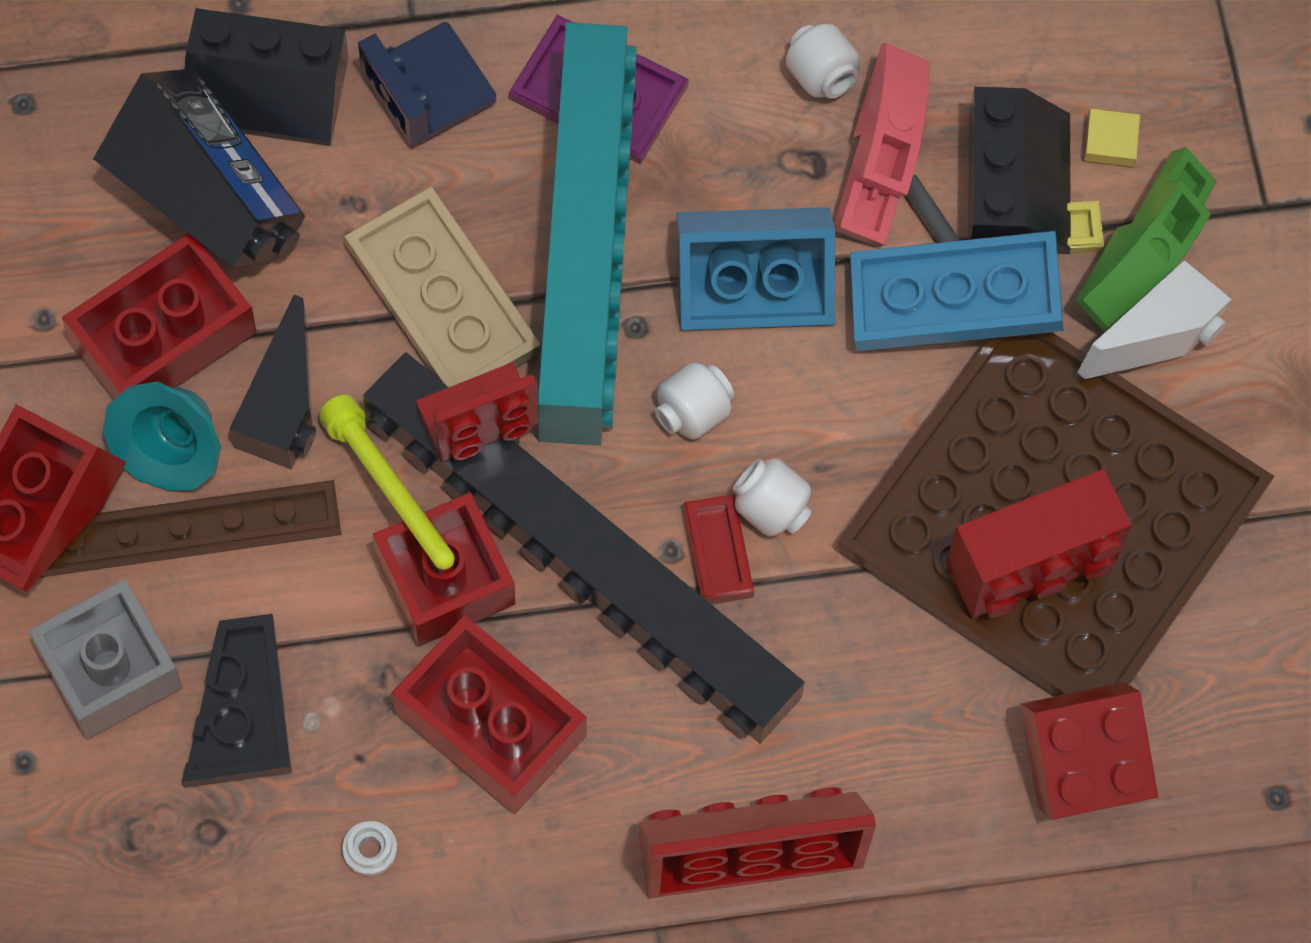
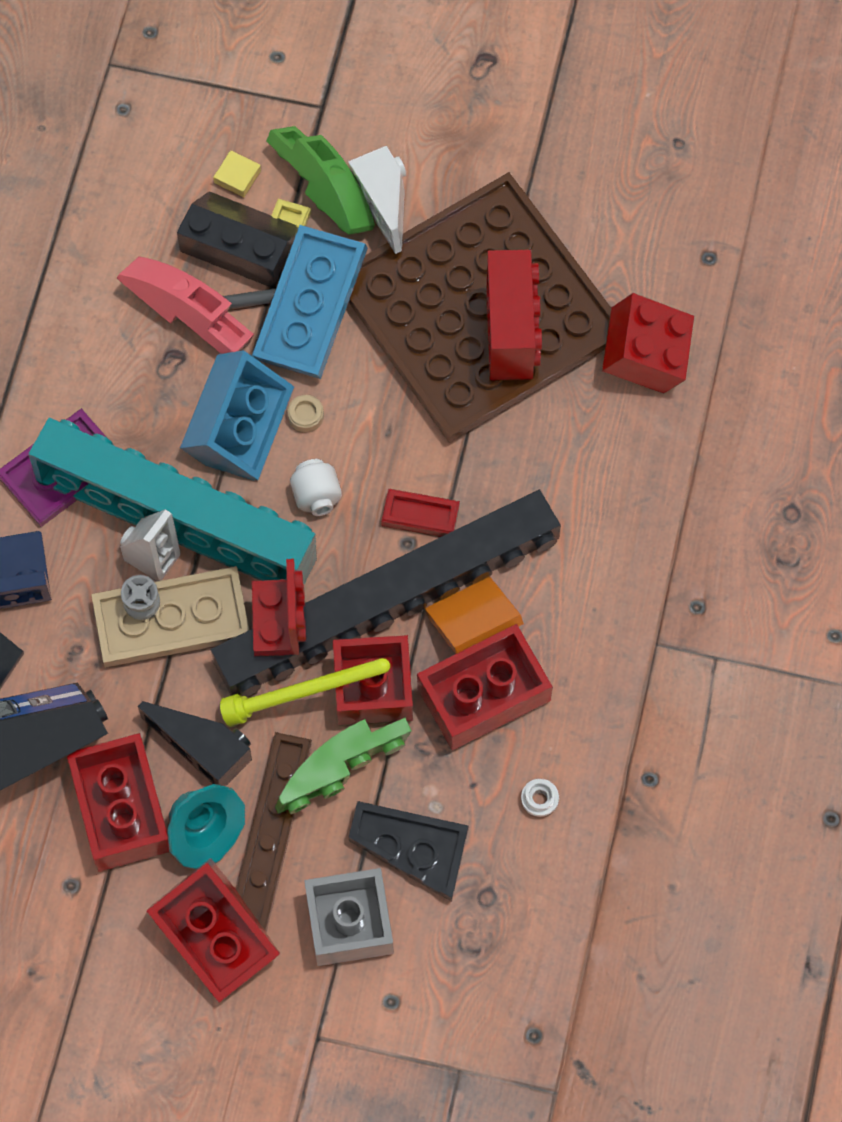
camera: 65 degrees left, 0 degrees up
(298, 554) = (327, 768): none -> bright green slope
(440, 229) = (137, 589): none -> light grey wheel
(518, 231) = (152, 545): none -> white slope
(589, 665) = (473, 615): none -> orange tile
(755, 842) = (630, 556): red slope -> none
(772, 497) = (403, 464): white head -> none
(801, 352) = (305, 413): none -> tan tile
(823, 60) = (109, 319): white head -> none

